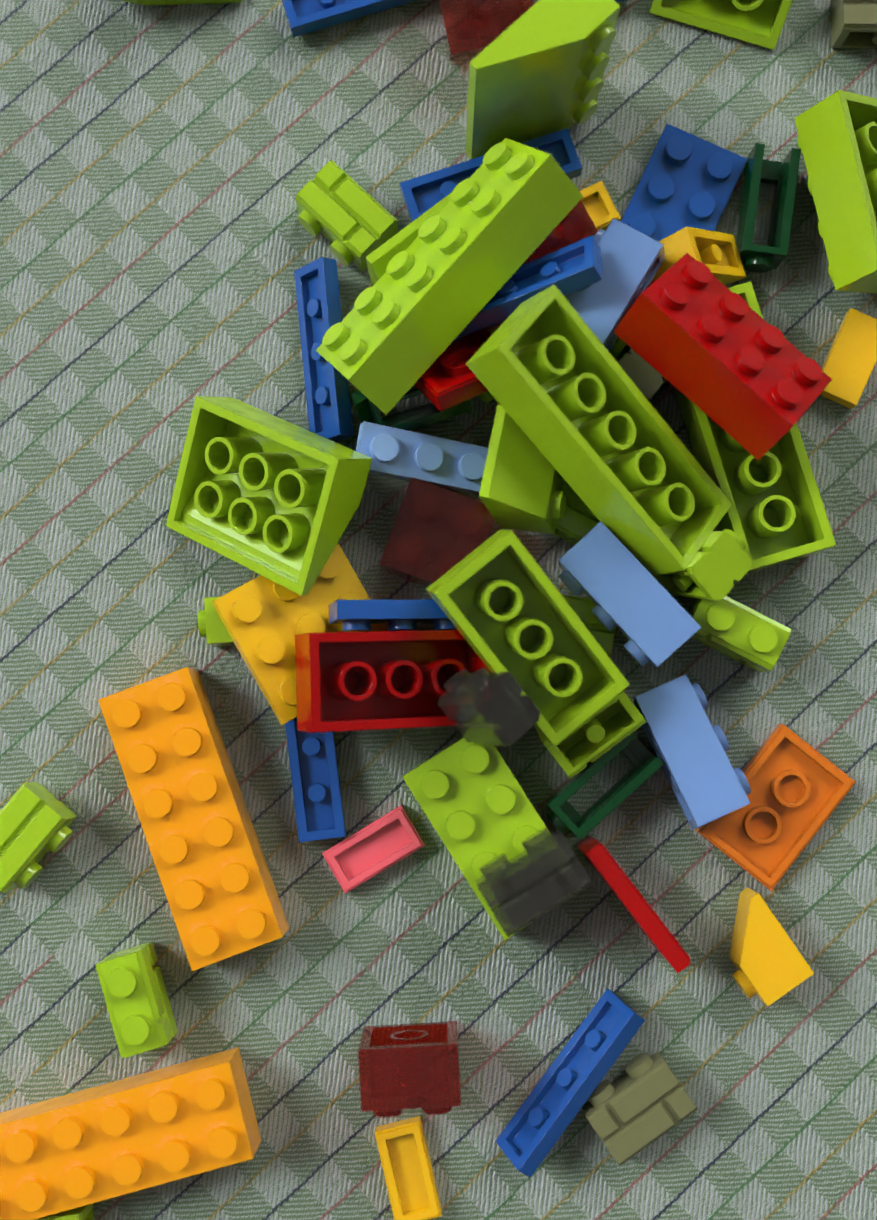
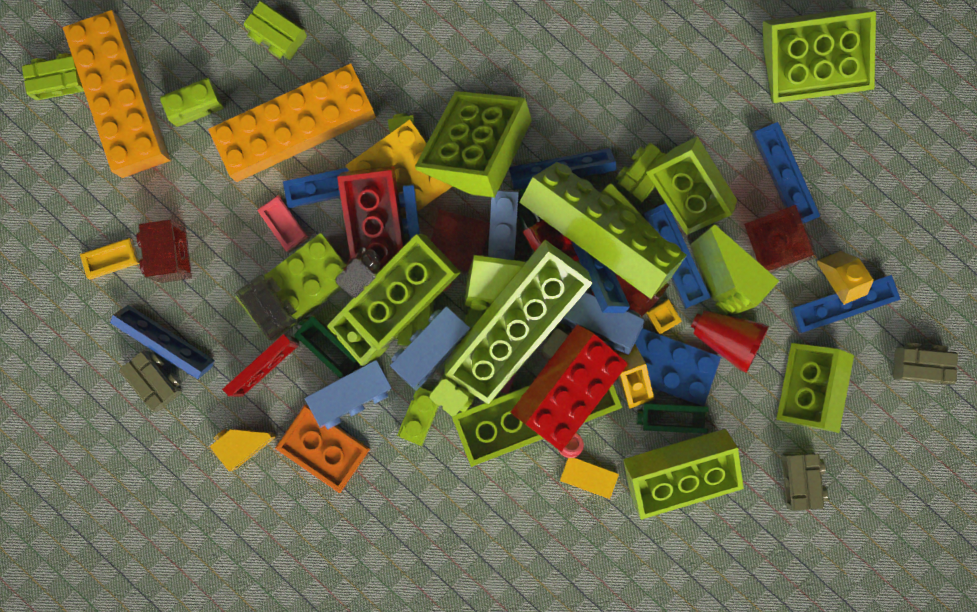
camera: 85 degrees right, 0 degrees up
(378, 132) = (692, 186): none -> lime slope
(640, 95) = (730, 337): none -> red cone

